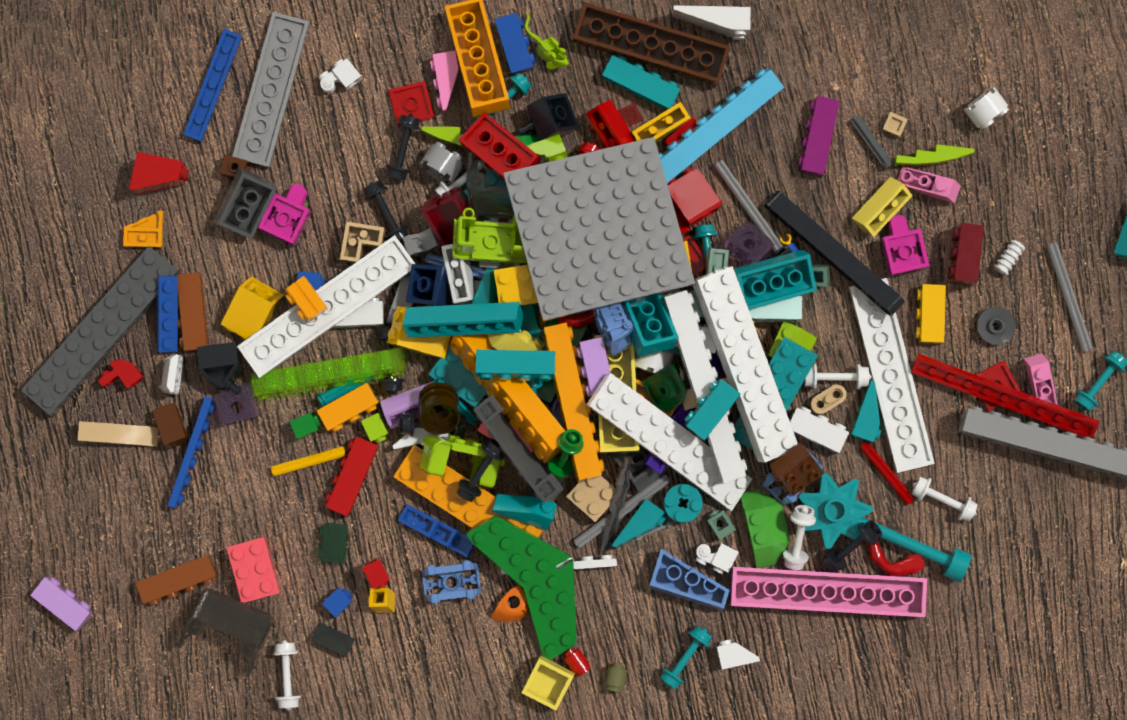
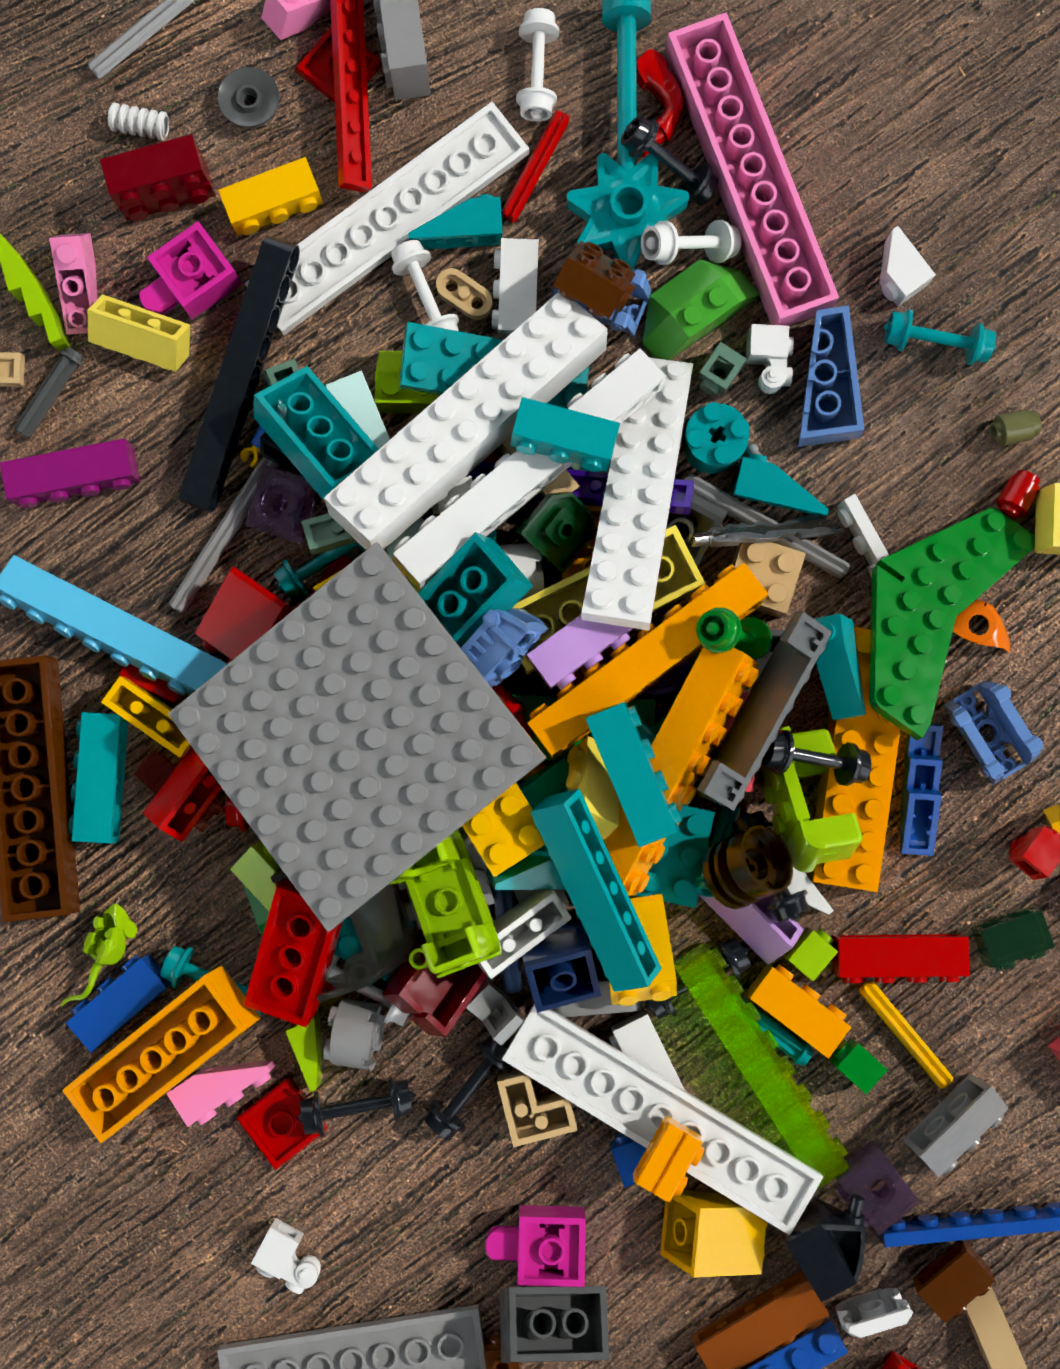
camera: 115 degrees left, 0 degrees up
(248, 464) = (956, 1125): none -> light grey slope
(550, 117) = (210, 895): black piece -> none

